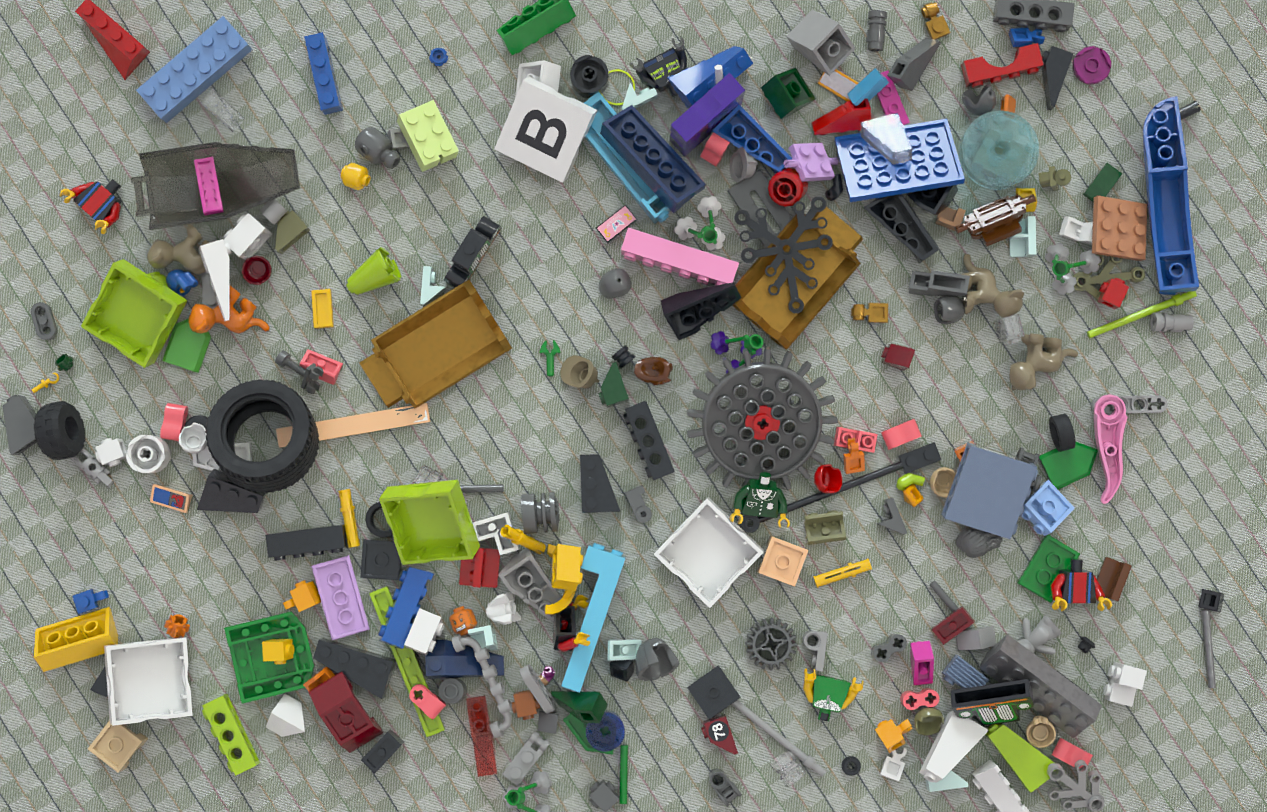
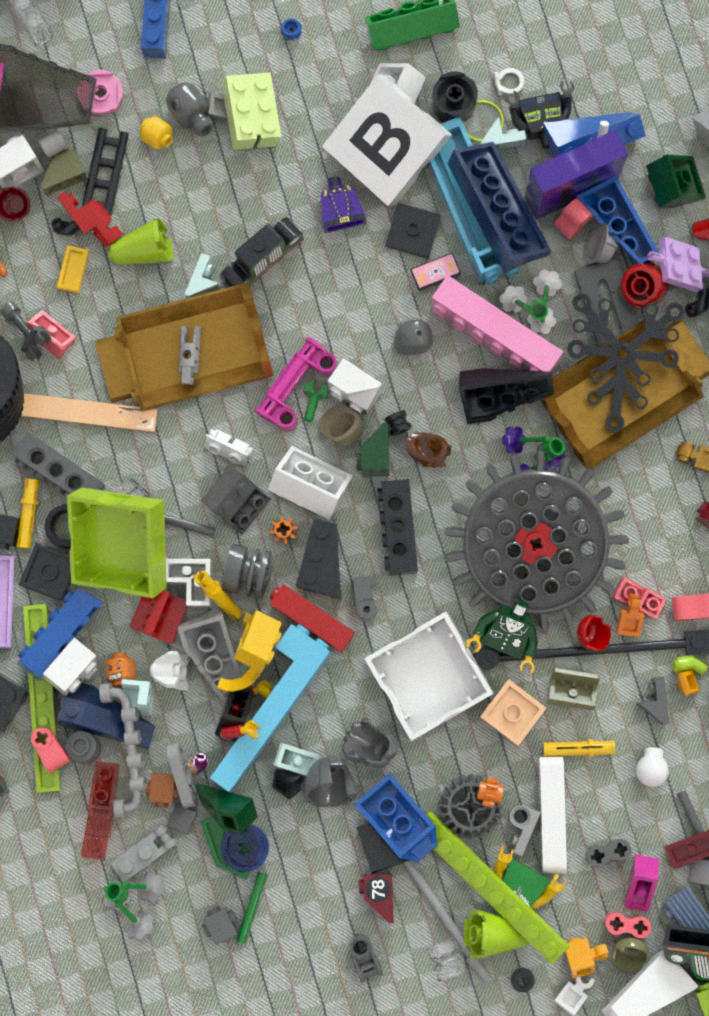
camera: 20 degrees right, 5 degrees down
(306, 276) = (63, 227): none -> black arm
(310, 158) = (114, 96): none -> bright pink plate
(325, 263) = (91, 217): none -> red plate
(331, 230) = (116, 165): none -> black bar
(335, 463) = (31, 446): none -> dark grey brick
(440, 362) = (189, 366): none -> light grey hinge
(484, 416) = (218, 444): none -> white hinge
(512, 457) = (235, 499): none -> dark grey slope
(524, 193) = (340, 207): none -> dark purple torso
(525, 348) = (273, 406): none -> dark pink piece
(553, 469) = (289, 534): none -> orange gear
(567, 425) = (310, 482): none -> white slope
(580, 339) = (354, 387): none -> white slope
(588, 195) = (413, 230): none -> black plate
(601, 534) = (311, 618): none -> red slope
(624, 57) = (500, 89): none -> white piece
(678, 620) = (369, 744): none -> dark grey hair
(718, 672) = (398, 820): none -> blue slope
(784, 630) = (490, 792): none -> orange gear
(806, 703) = (498, 893): none -> lime plate
(819, 738) = (490, 935): none -> lime cone
(837, 631) = (552, 815): none -> white beam
(904, 571) = (652, 768): none -> white piece

